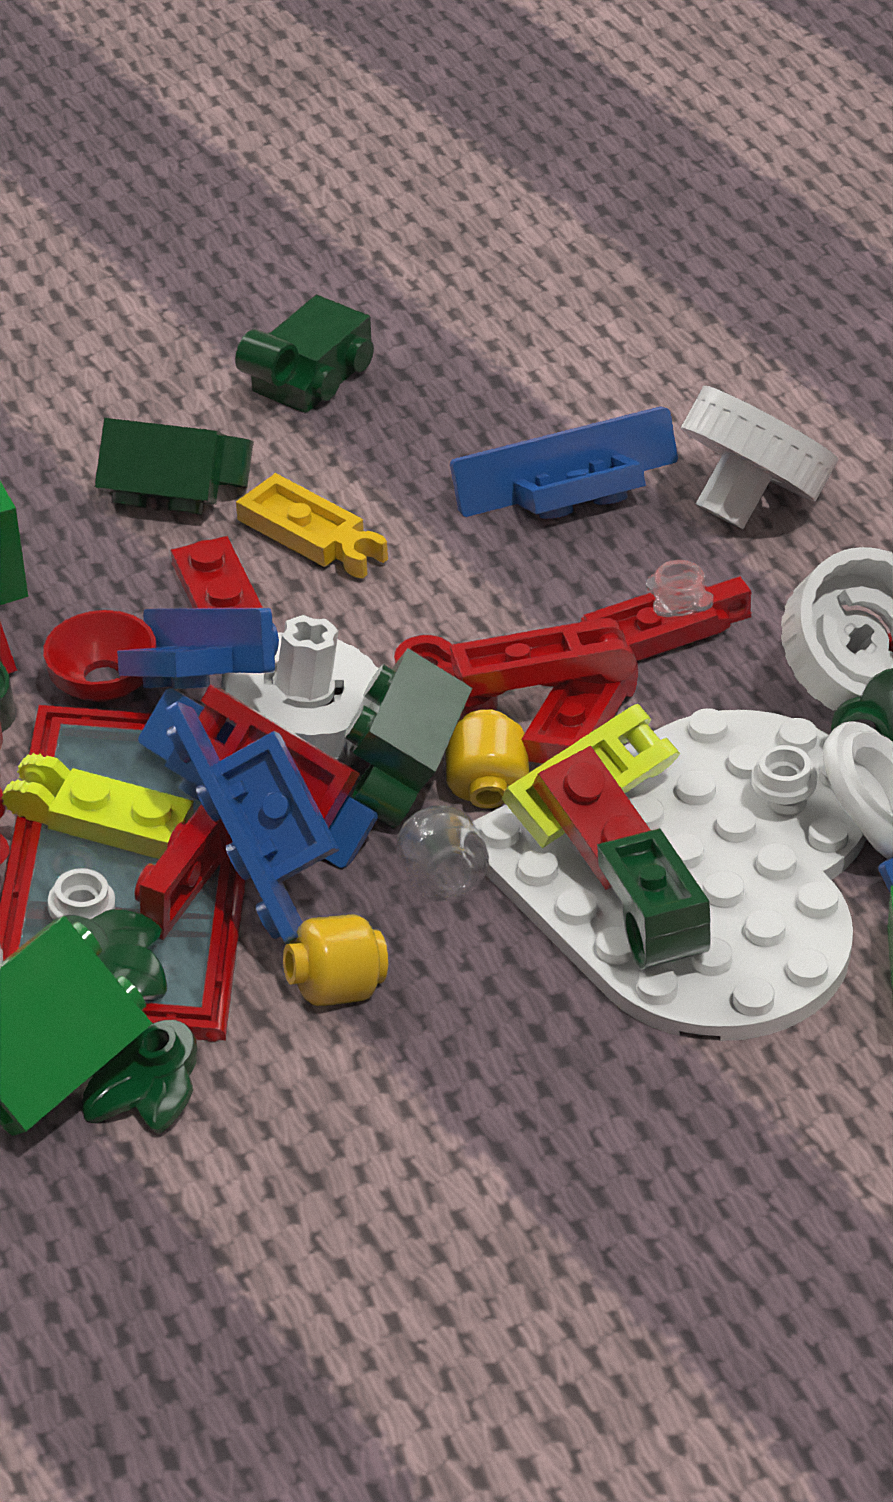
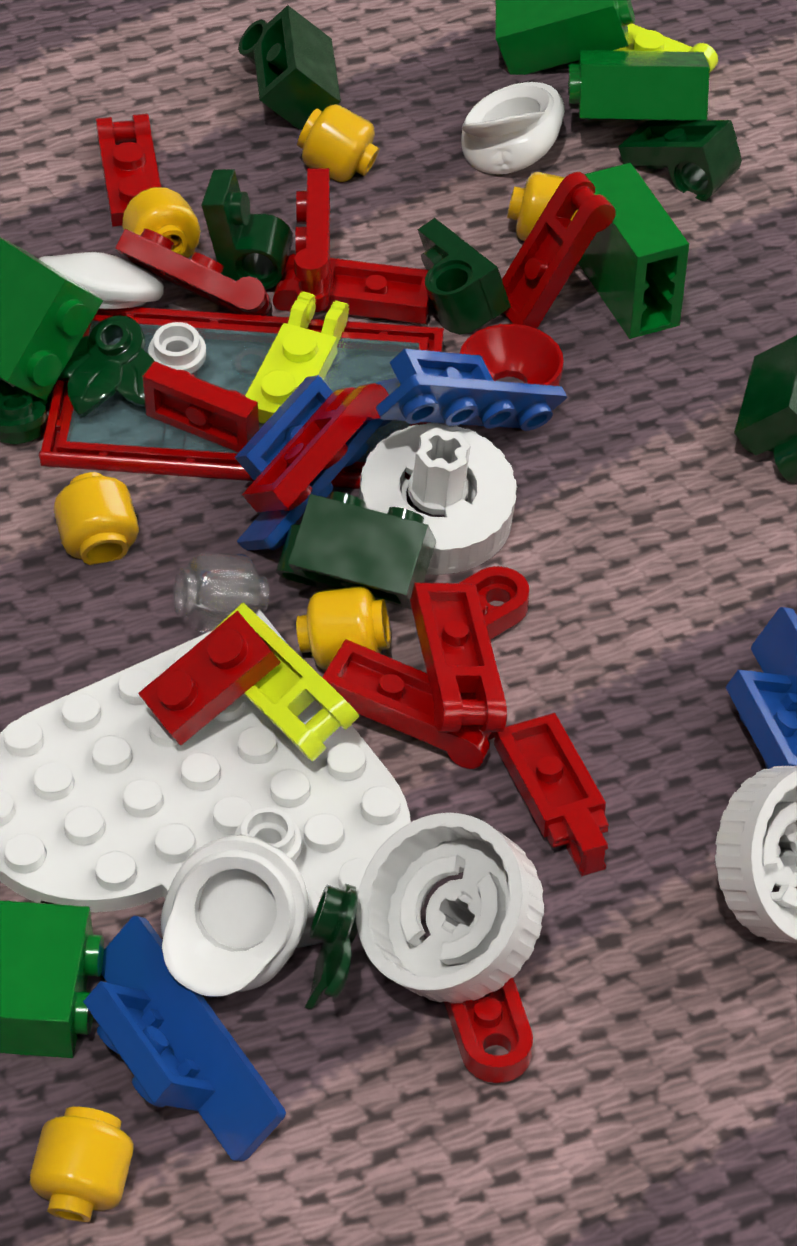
camera: 90 degrees right, 5 degrees up
(213, 575) = (633, 457): red plate -> none
(264, 810) = (218, 421): blue bracket -> none
(310, 525) = (716, 518): yellow plate -> none
(661, 900) = (73, 703): dark green plate -> none
(679, 589) = (566, 777): clear plate -> none

